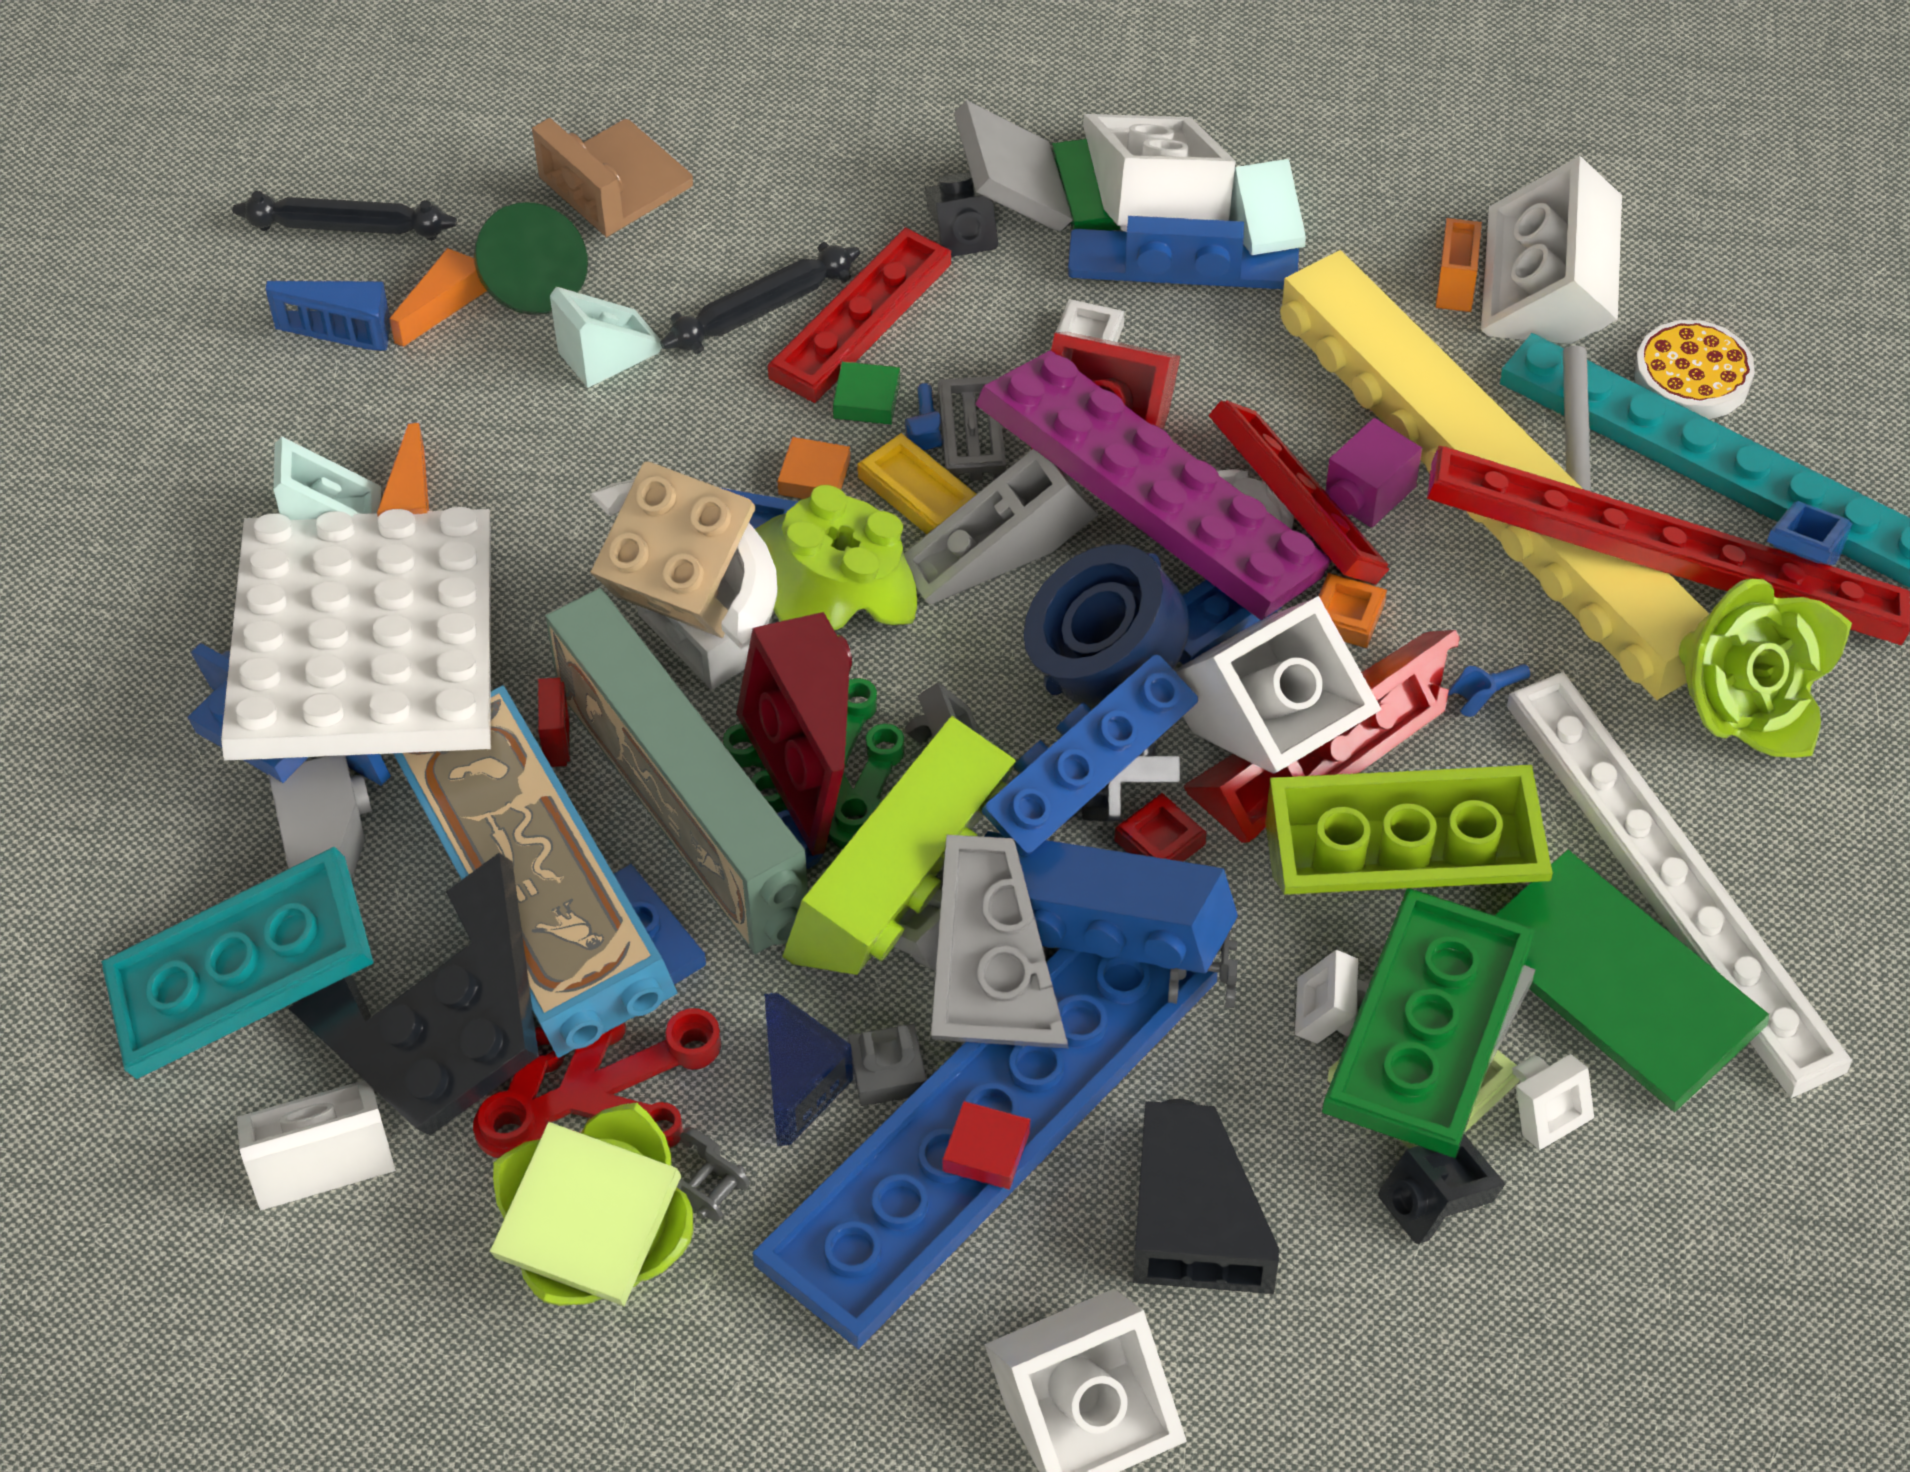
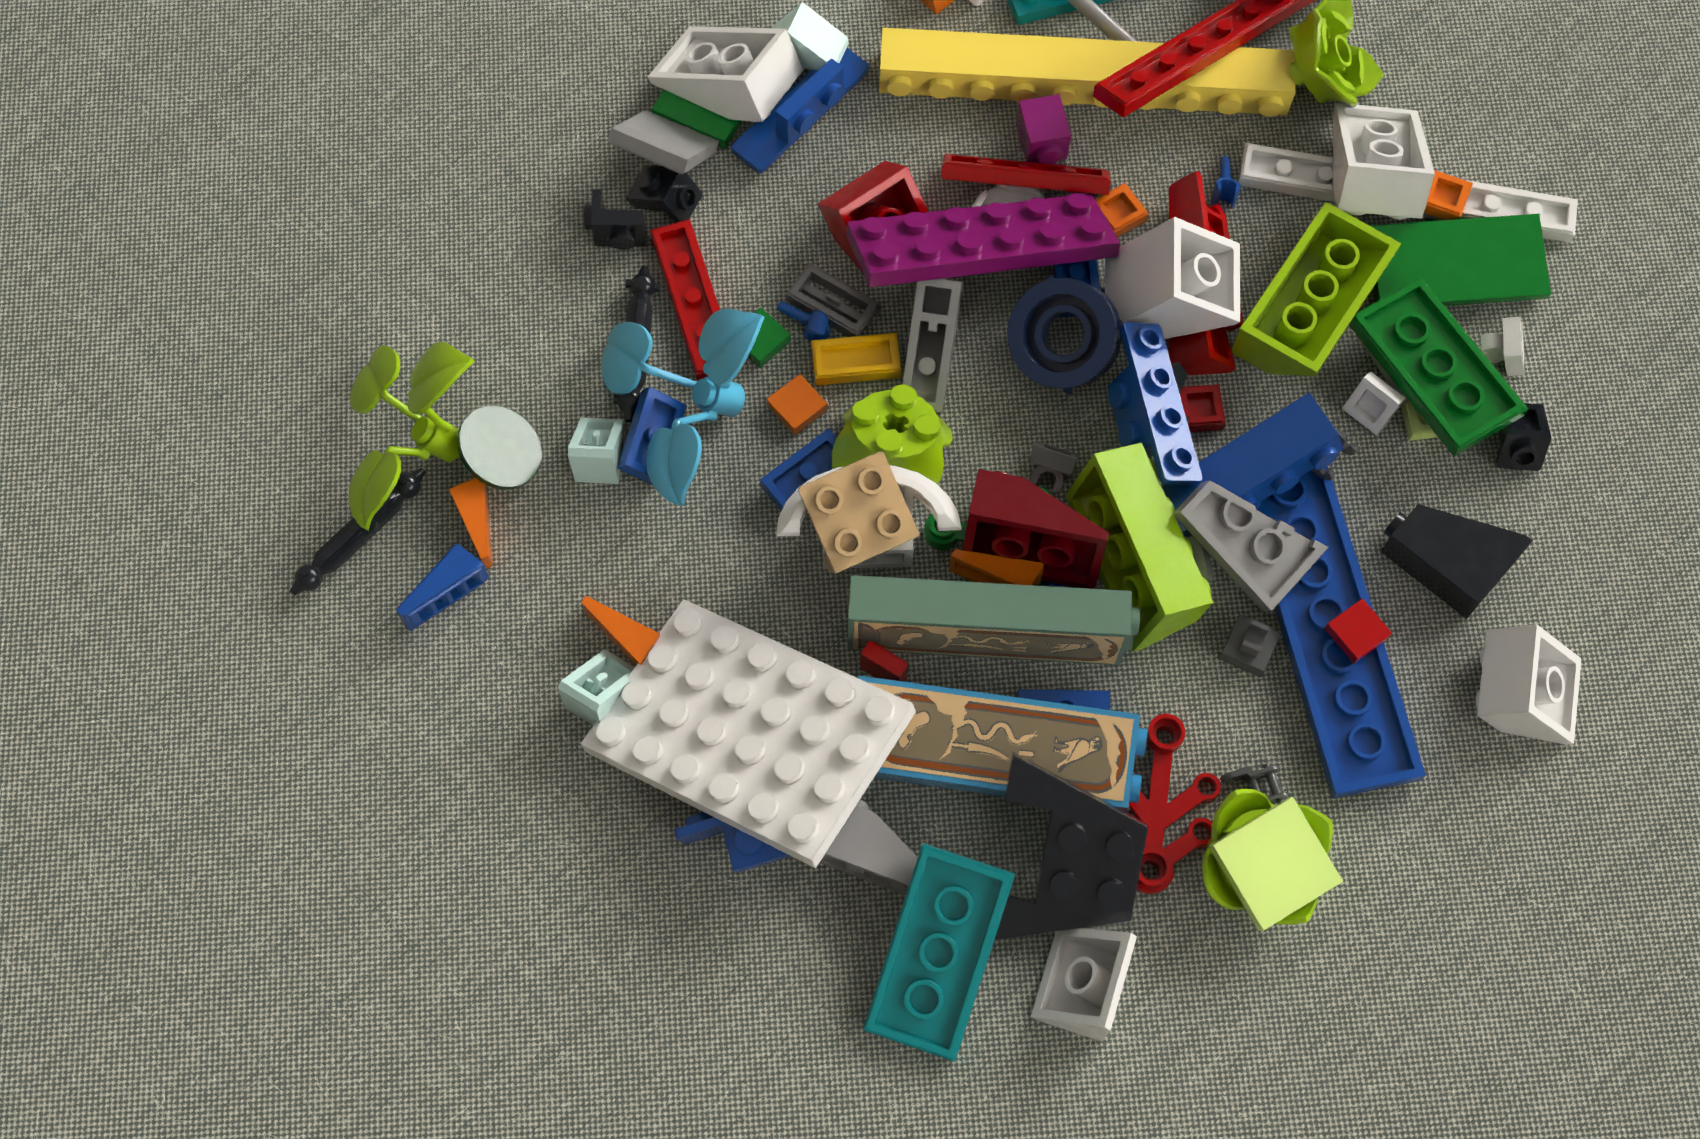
camera: 55 degrees left, 15 degrees up
(491, 192) = (432, 435): none -> lime plant
(610, 175) = (481, 339): medium nougat bracket -> none
(656, 369) = (652, 412): none -> blue plate
(746, 379) = (724, 345): none -> medium azure plant
(749, 743) = (995, 569): none -> orange piece
(806, 1067) = (1228, 691): clear blue slope -> none
(878, 192) = (614, 227): none -> black bracket
(1091, 320) = (807, 191): white tile -> none
(1661, 801) = (1380, 161): none -> white slope
(1695, 906) = (1447, 196): none -> orange tile

